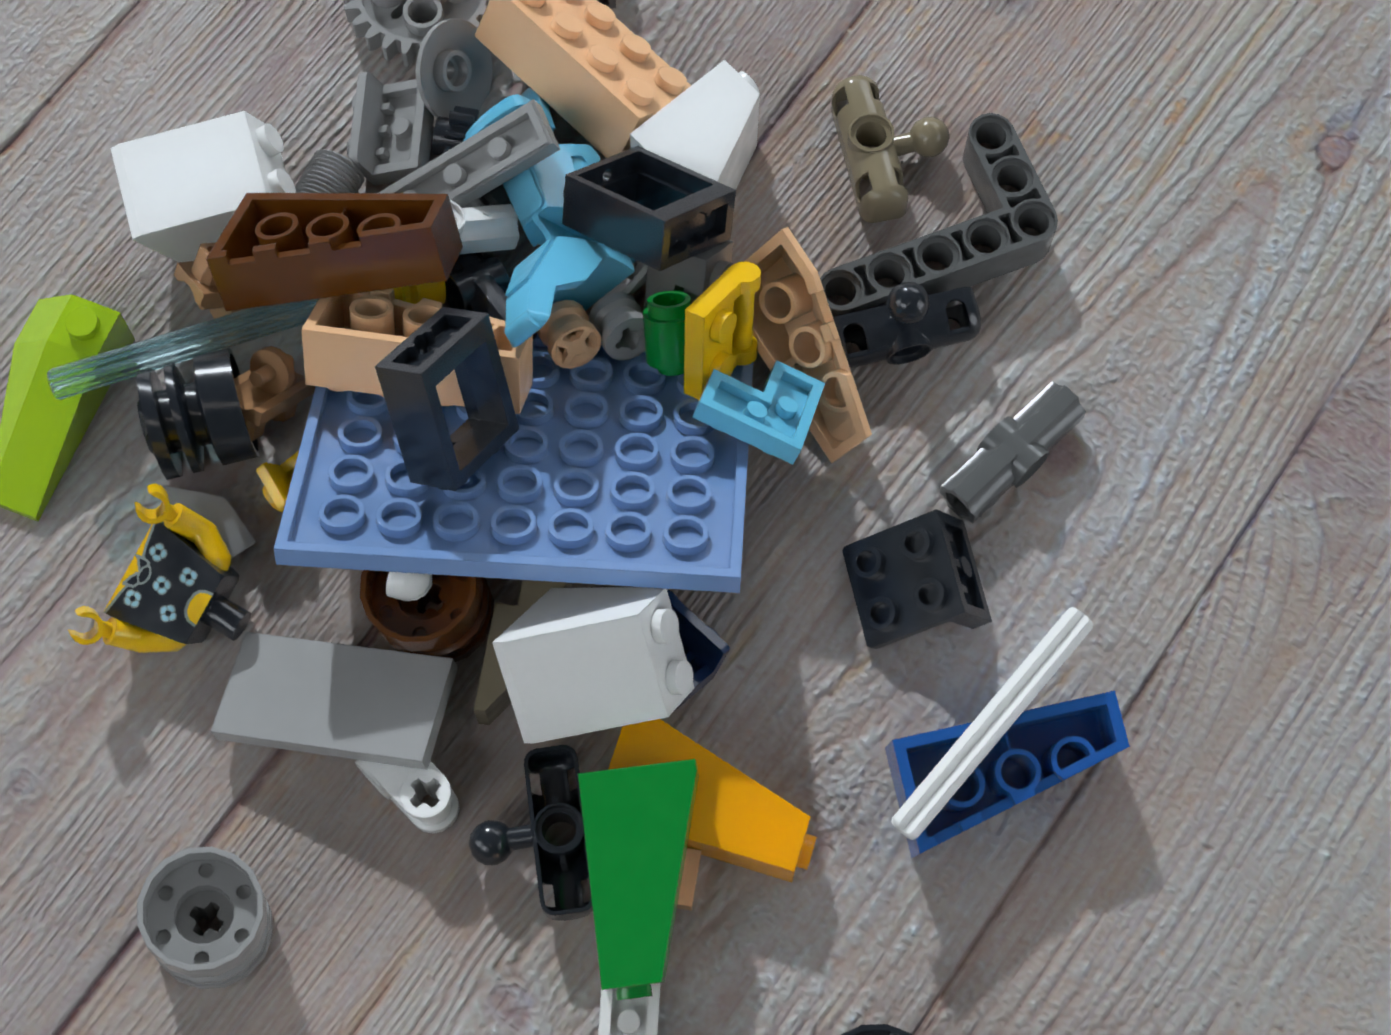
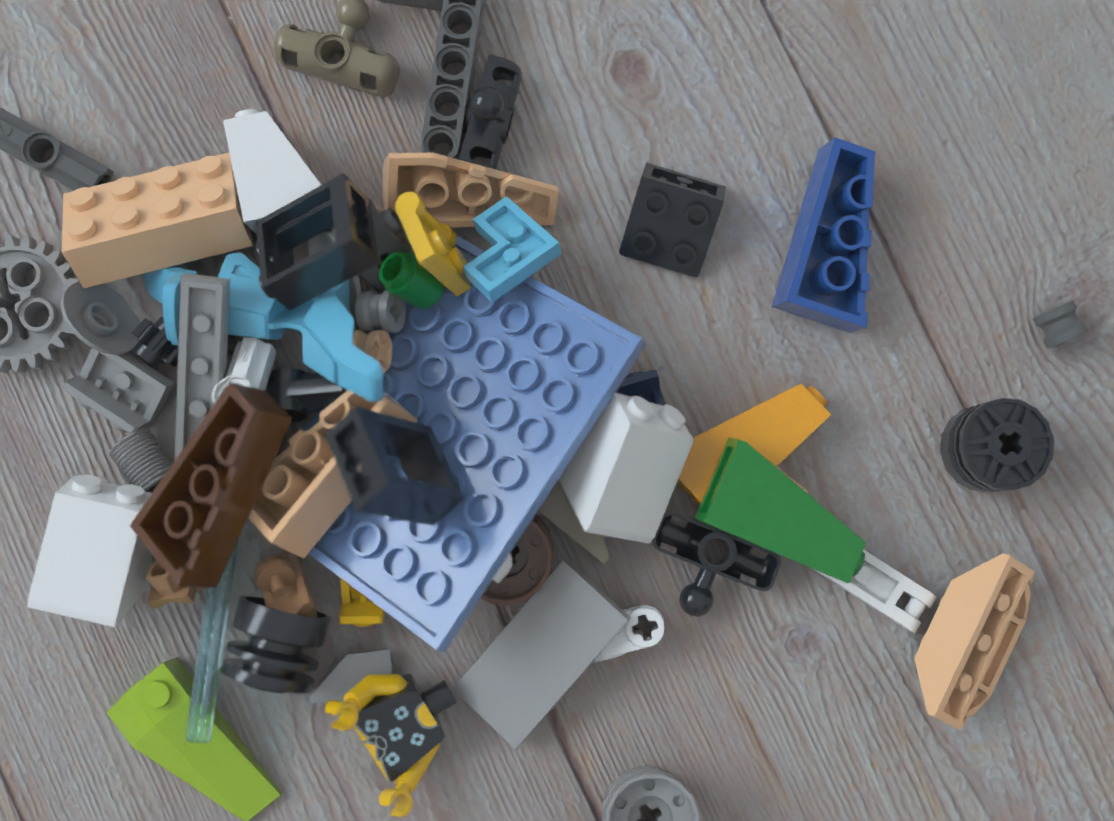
camera: 65 degrees left, 15 degrees up
(992, 723) = (816, 228): white axle -> none
(1012, 451) = (619, 99): dark grey piece -> none

